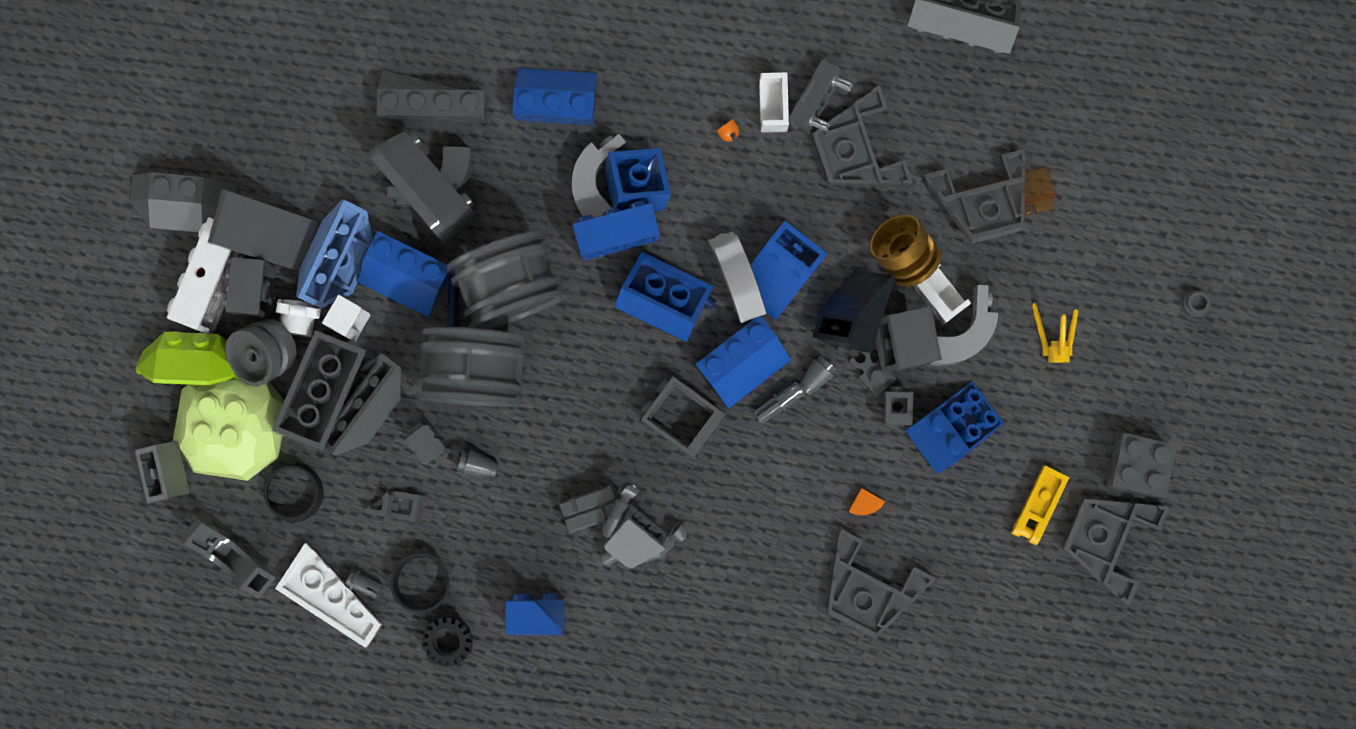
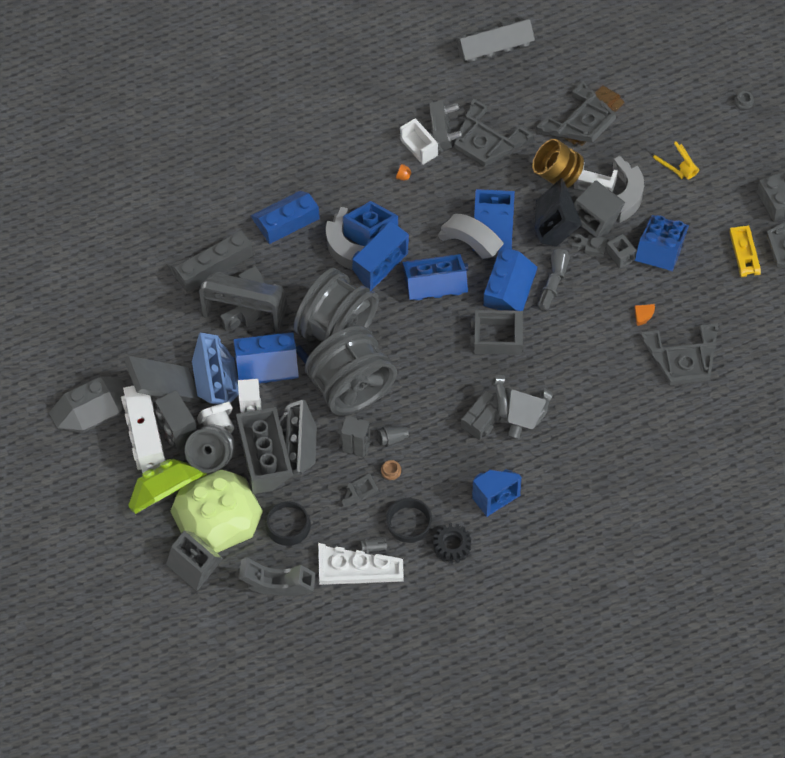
camera: 35 degrees left, 25 degrees down
(446, 505) = (391, 470): none -> medium nougat plate

